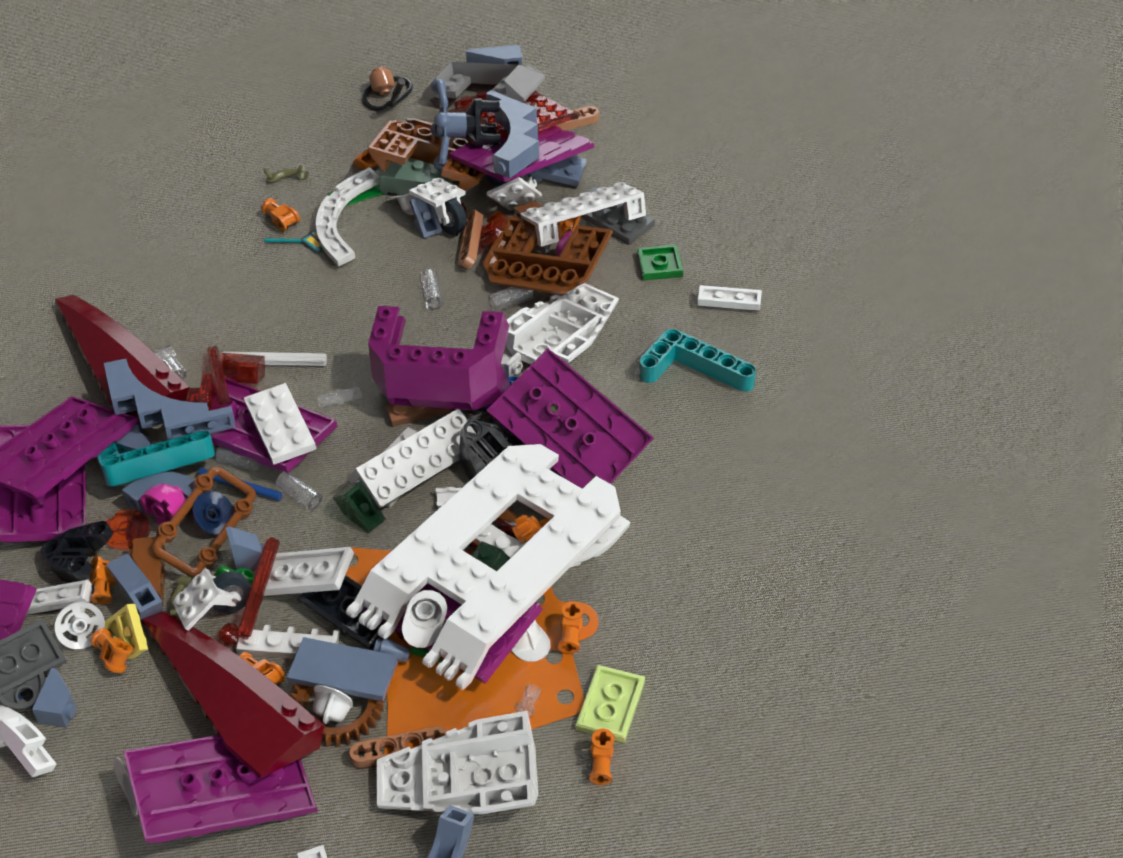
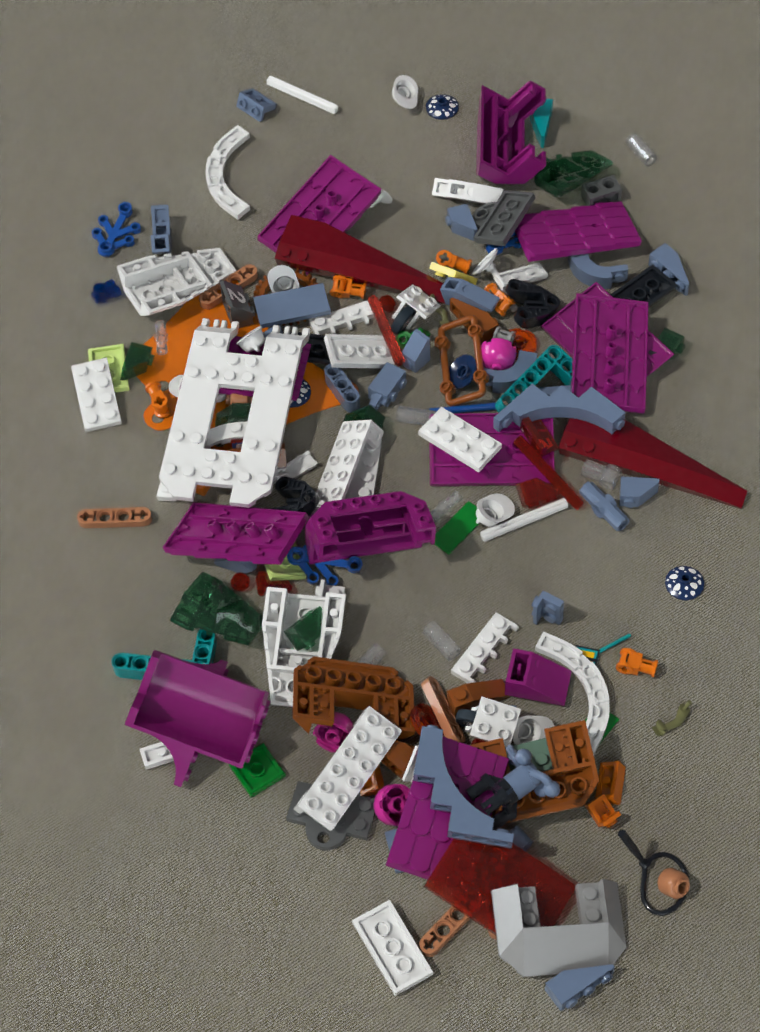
camera: 155 degrees right, 10 degrees up
(138, 526) = (500, 333): none -> light grey bush
(153, 333) = (636, 490): none -> sand blue slope
(181, 261) = (684, 589): none -> dark blue dish
(192, 337) = (604, 506): none -> sand blue piece
(299, 365) = (494, 509): none -> white piece
(307, 532) = (386, 386): none -> sand blue hinge
(322, 266) = (548, 607): none -> sand blue bracket
(339, 379) = (457, 528): none -> green piece
(355, 537) = (342, 388): none -> sand blue beam
(376, 230) = (536, 678): none -> magenta slope
(396, 277) = (483, 647): none -> white hinge
(408, 700) = (236, 304): none -> dark grey slope
(437, 239) = (470, 694): none -> dark orange slope
(526, 527) = (221, 437): orange gear -> none
(550, 324) = (305, 630): none -> clear green slope
(560, 187) = (390, 803): none -> dark pink cylinder
(566, 808) = (103, 292): none -> clear blue plate
(574, 681) = (136, 361): none -> clear green slope
(601, 756) = (96, 330): orange connector -> none
(619, 120) = (392, 947): none -> white plate
(626, 372) = (217, 609): none -> clear green wedge
(642, 667) = (96, 395): none -> white plate
(688, 519) = (114, 514): none -> nougat beam
(690, 283) = (198, 711): none -> magenta cylinder

